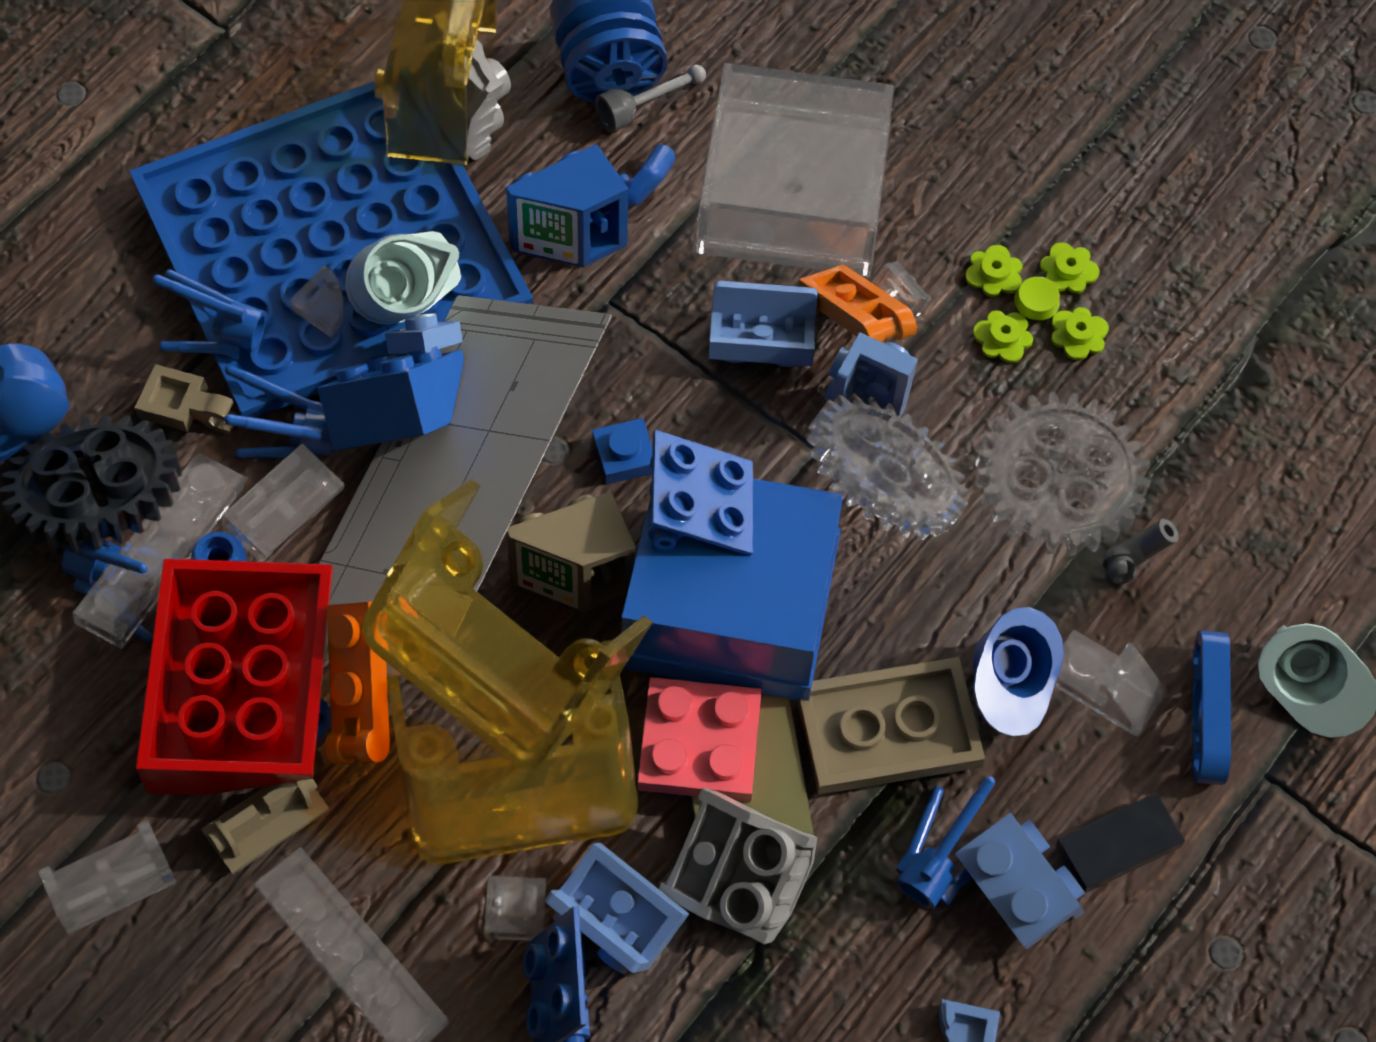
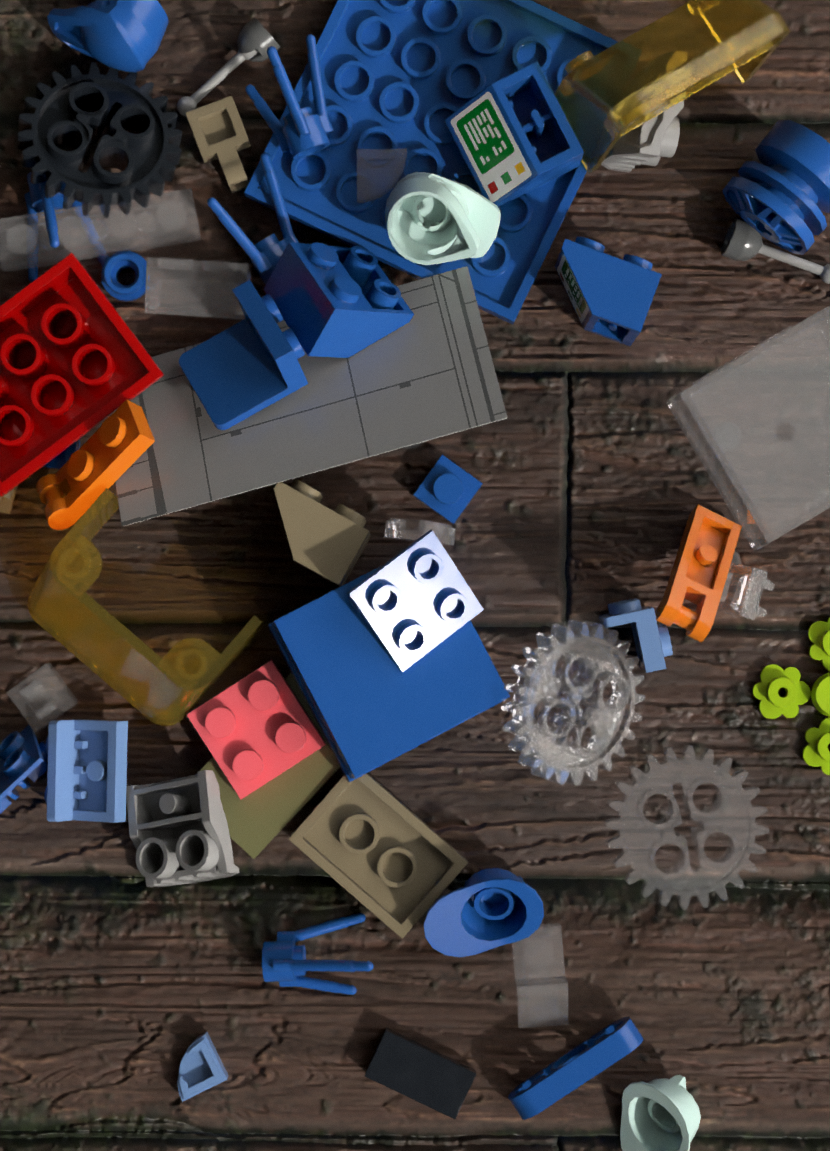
camera: 55 degrees right, 25 degrees up
(131, 321) = (251, 45): none -> hinge
(386, 487) = (246, 363): none -> blue bracket
(390, 175) = (515, 136): none -> blue slope
(422, 334) = (400, 279): medium blue plate -> none
(474, 655) = (162, 556): clear yellow windscreen -> none
(635, 495) = (413, 529): none -> clear tile
(649, 175) = (698, 317): blue arm -> none
(763, 323) = (631, 511): medium blue bracket -> none
(1020, 880) = (332, 1029): medium blue bracket -> none
(1124, 557) = (668, 925): dark grey arm -> none

